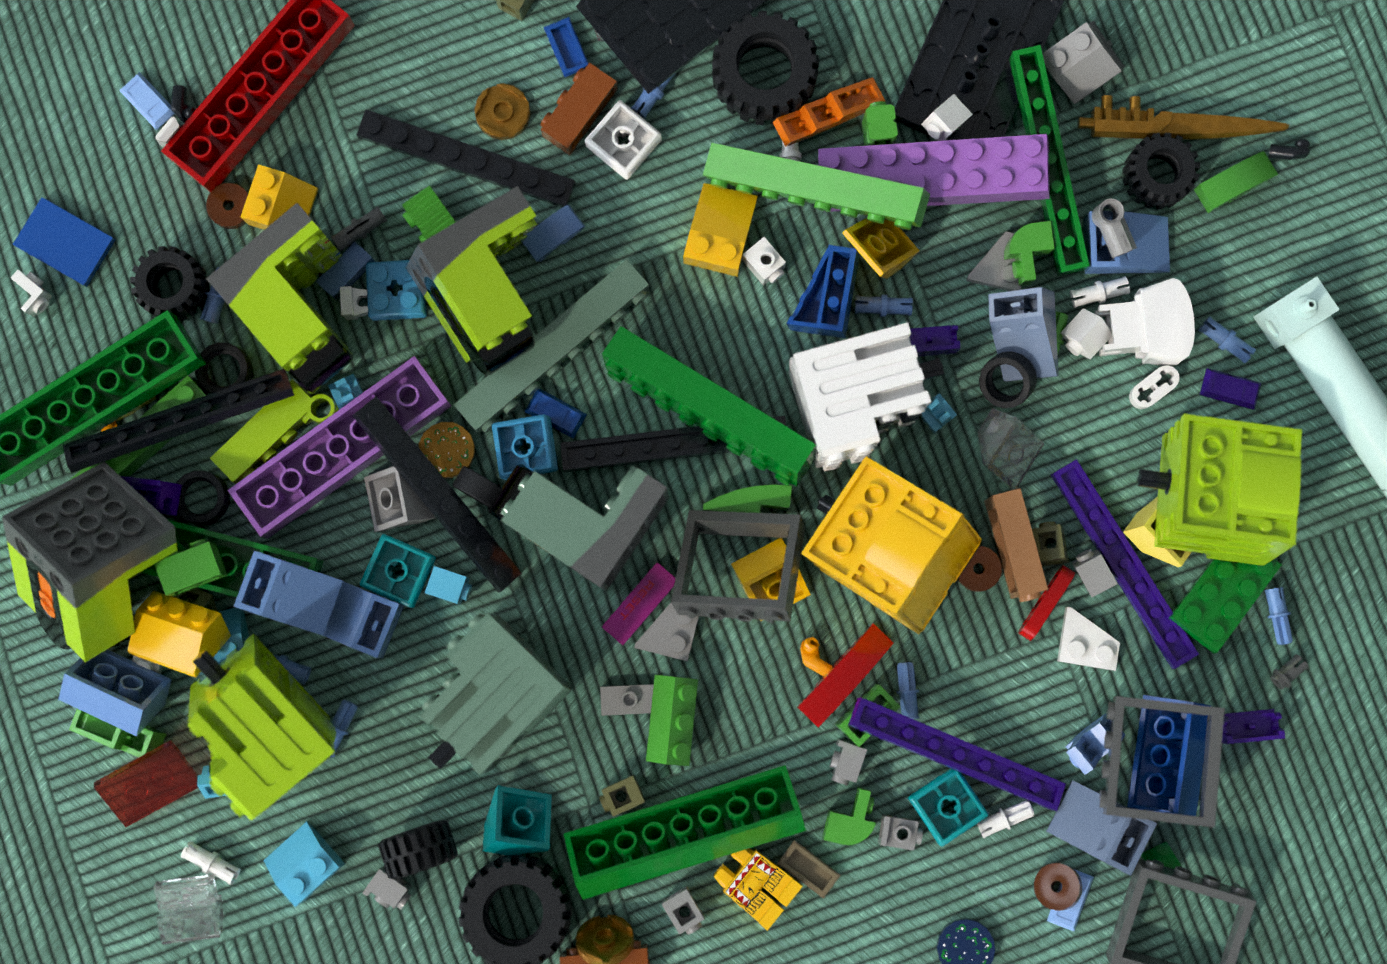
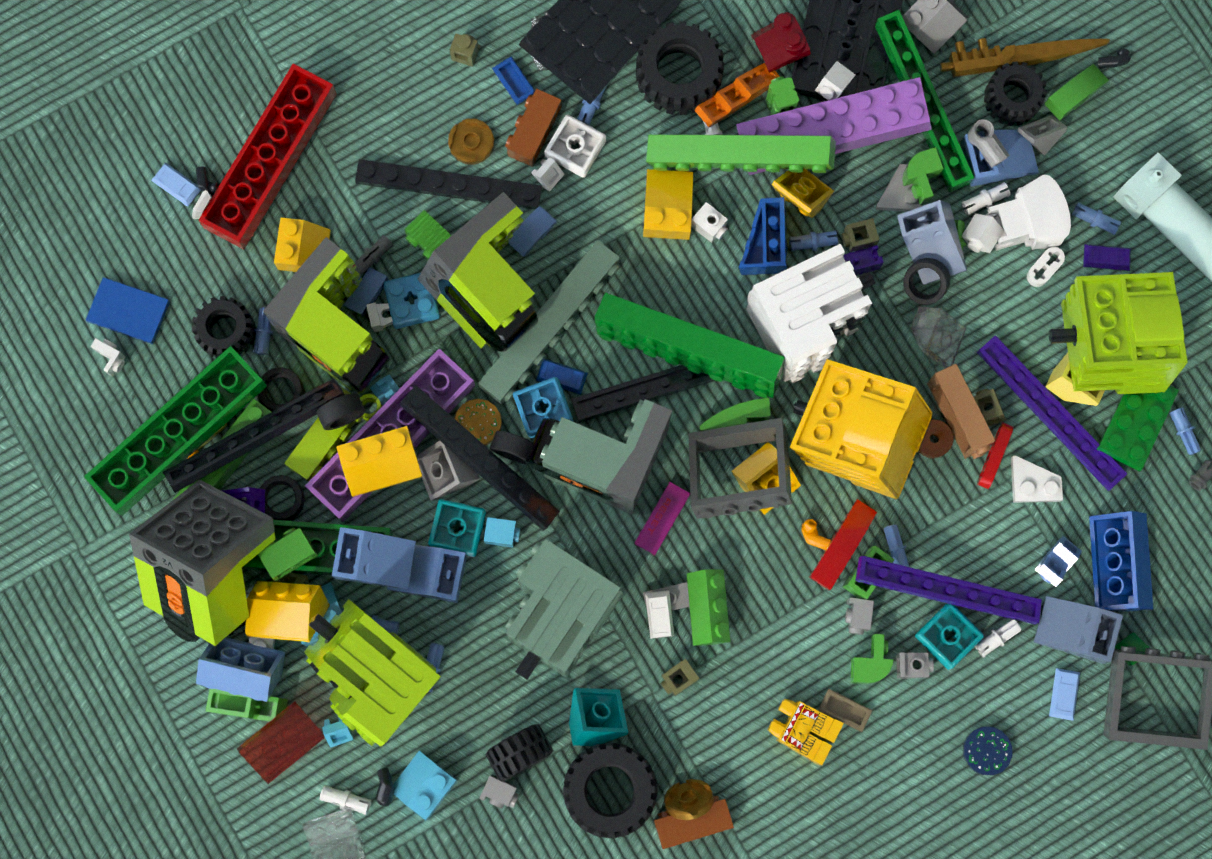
camera: 15 degrees left, 5 degrees down
(217, 203) = (252, 250): reddish brown piece -> none
(259, 859) = (385, 789): none -> black arm
(283, 411) = (341, 411): none -> black tyre
(317, 478) = (379, 461): none -> yellow slope
(585, 168) = (548, 174): none -> white tile
(614, 716) = (659, 614): none -> white tile
(669, 635) = (692, 538): light grey wing -> none
(675, 902) = (745, 754): light grey brick -> none
(683, 832) = (737, 696): green brick -> none
(893, 58) = (781, 42): none -> dark red slope
(937, 413) = (875, 320): medium azure tile -> none
(947, 302) = (865, 229): none -> olive brick
(1070, 891) = (1060, 693): reddish brown piece -> none
(1094, 572) = (1028, 423): light grey brick -> none
(1185, 224) = (1043, 133): none -> light grey slope
(1211, 764) = (1157, 558): dark grey window -> none
(1252, 726) = (1180, 525): dark purple hinge -> none

